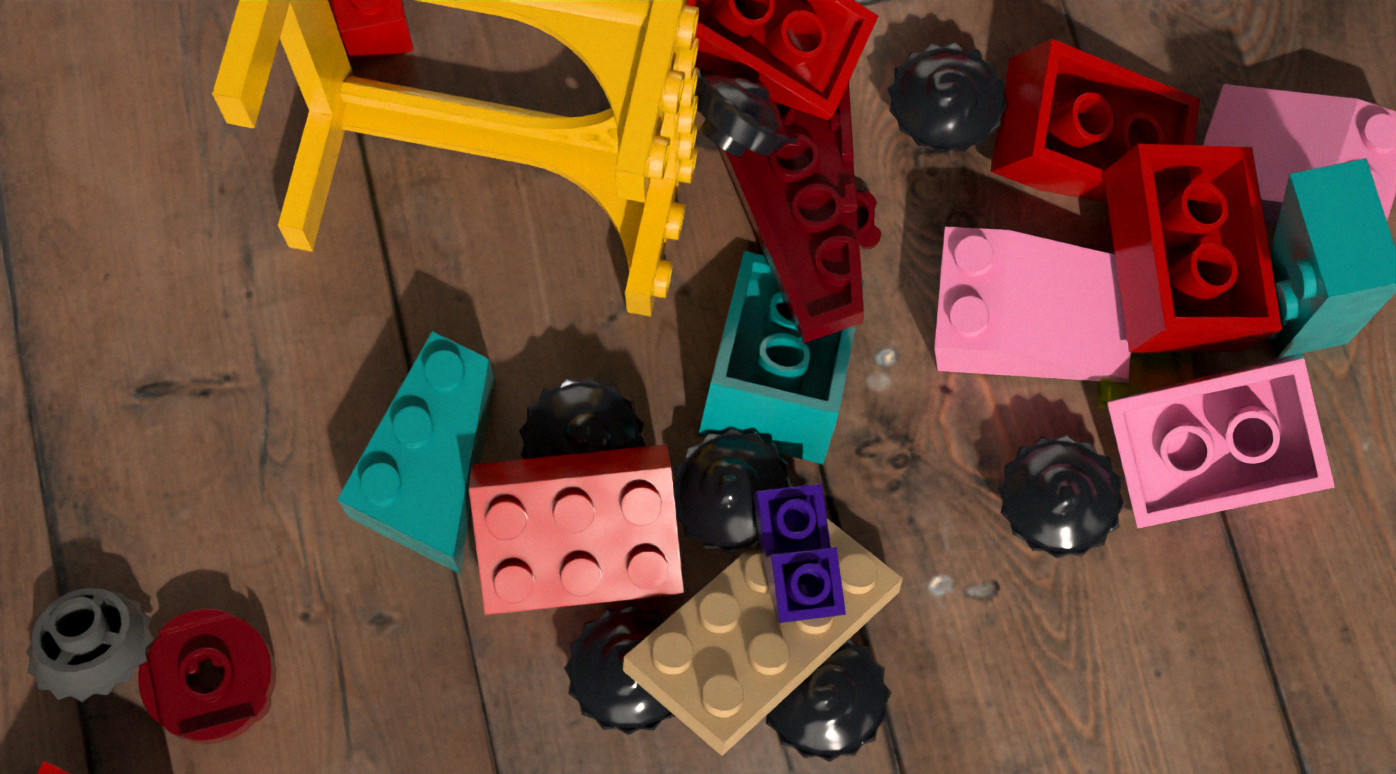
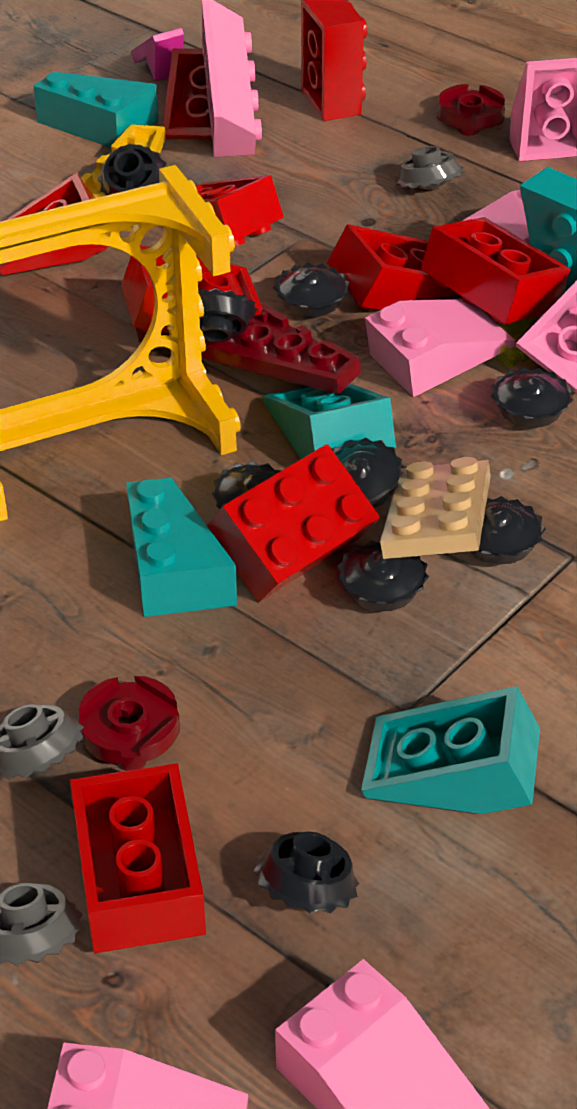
camera: 35 degrees left, 30 degrees down
(798, 553) = (429, 465): dark purple slope -> none

